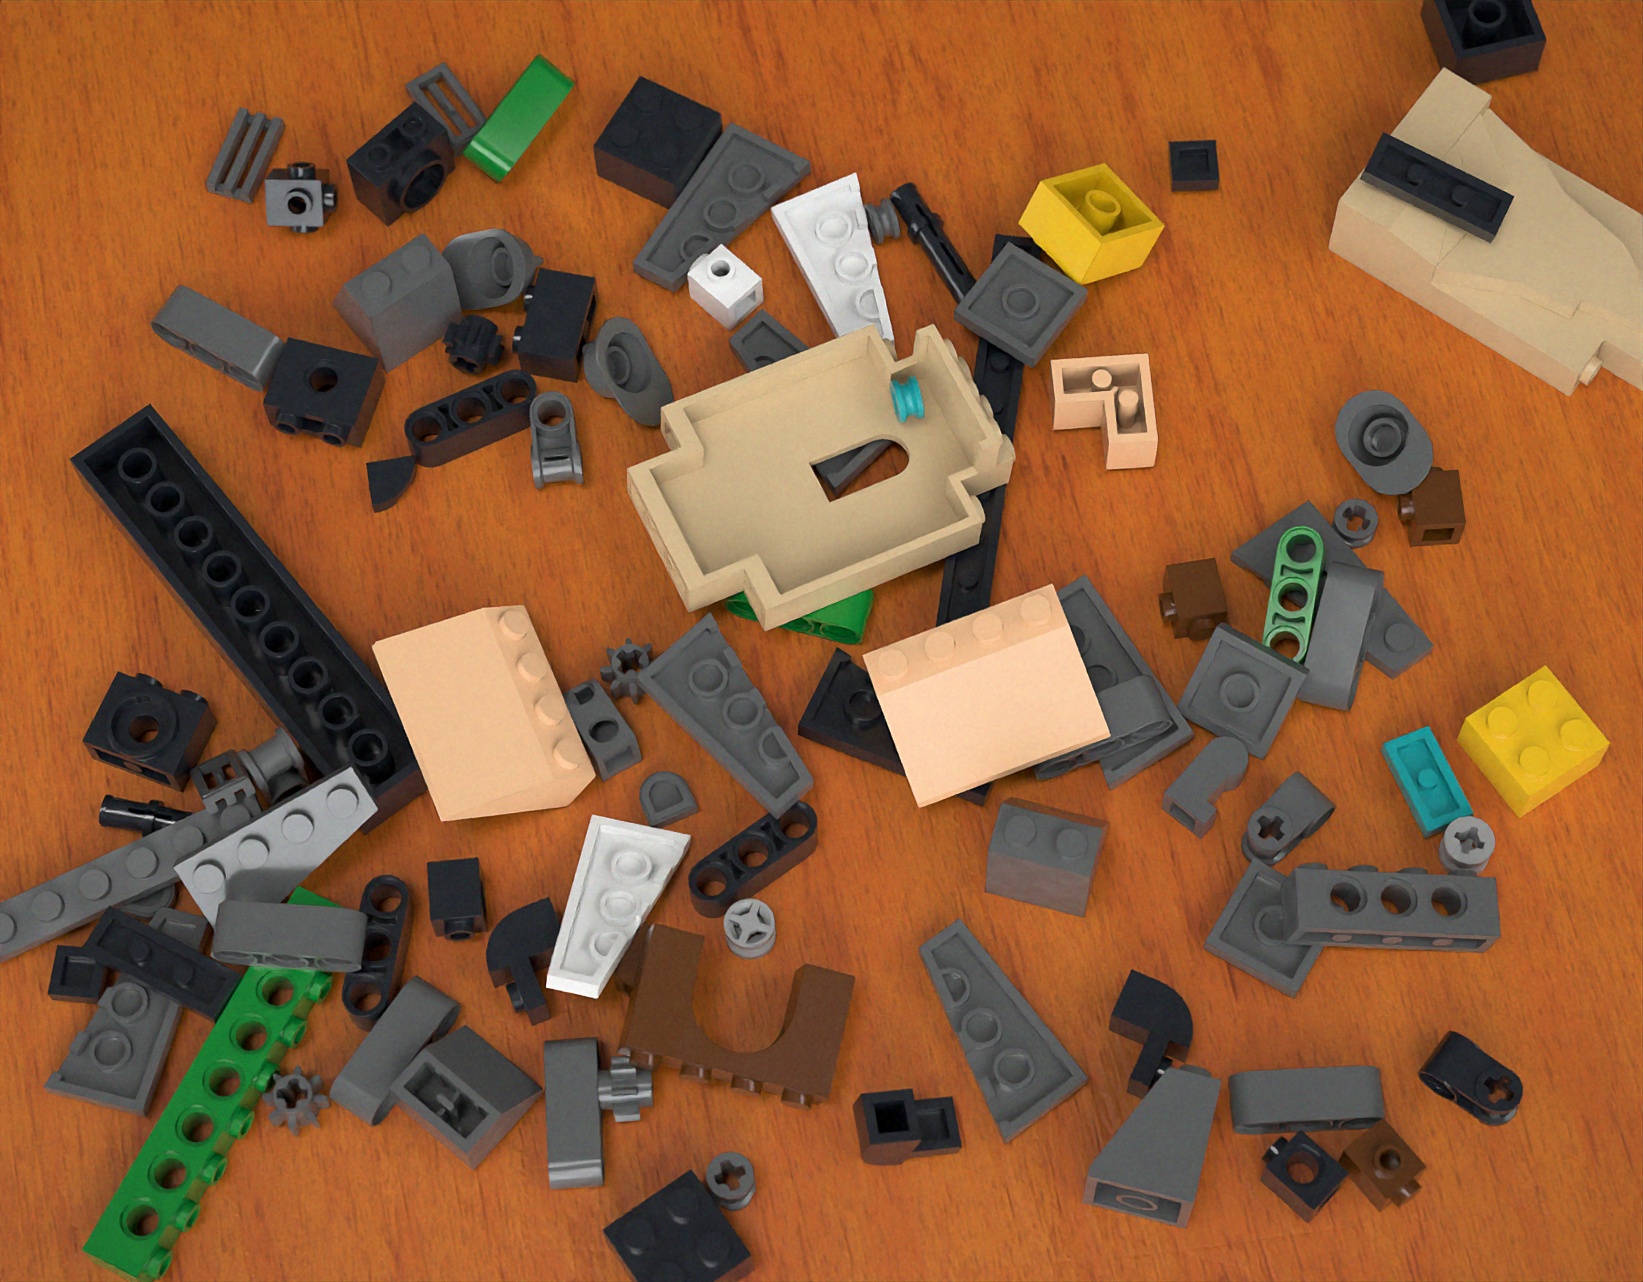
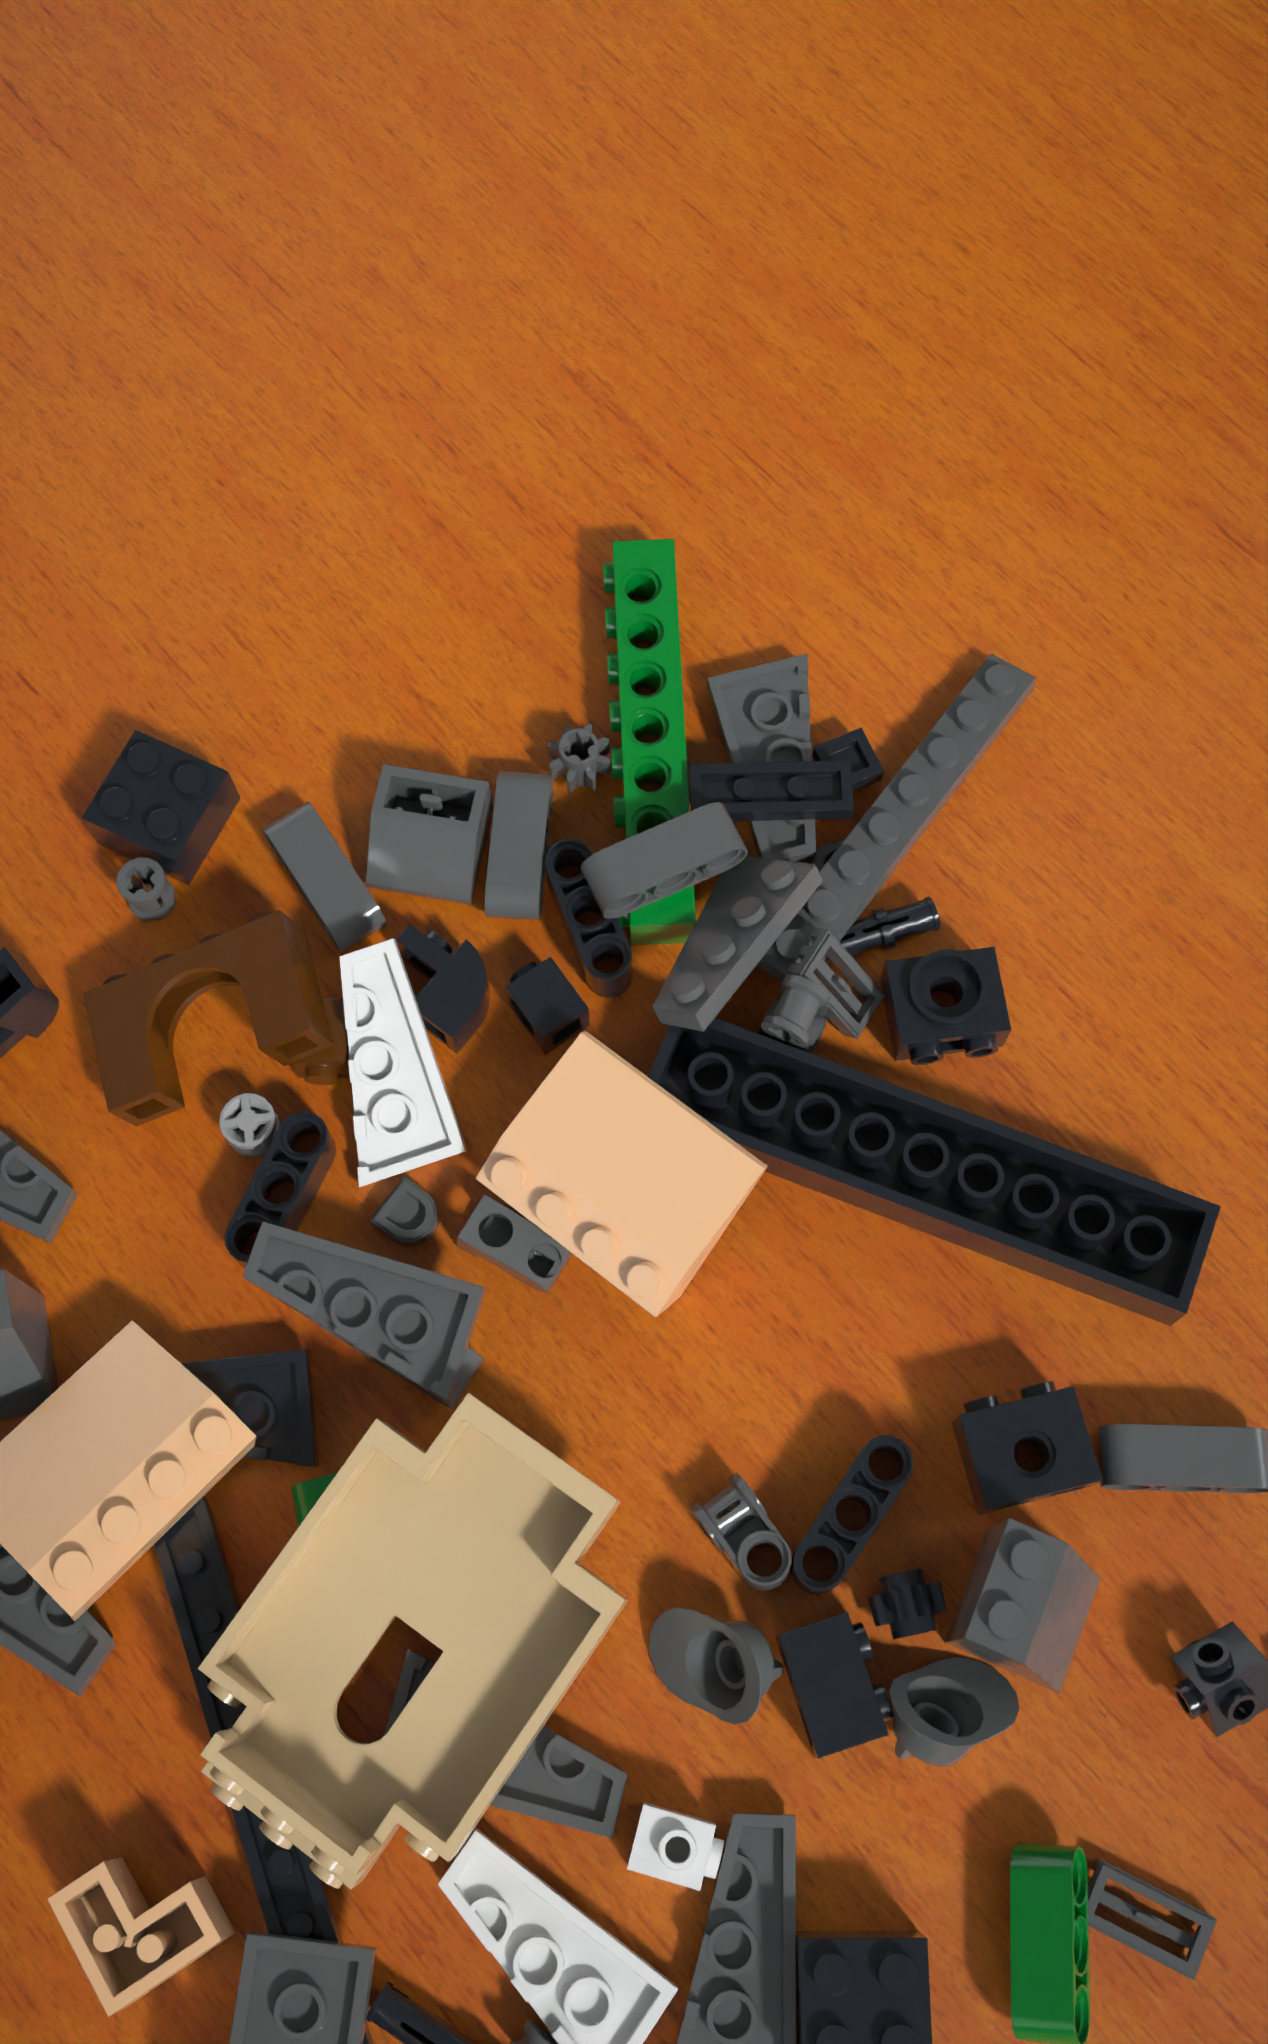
camera: 150 degrees right, 5 degrees up
(390, 480) = (895, 1399): black tile -> none
(402, 165) = (1136, 1789): black brick -> none
(625, 1089) = (292, 903): dark grey gear -> none
(630, 658) = (522, 1332): dark grey gear -> none
(906, 399) = (363, 1785): teal bush -> none

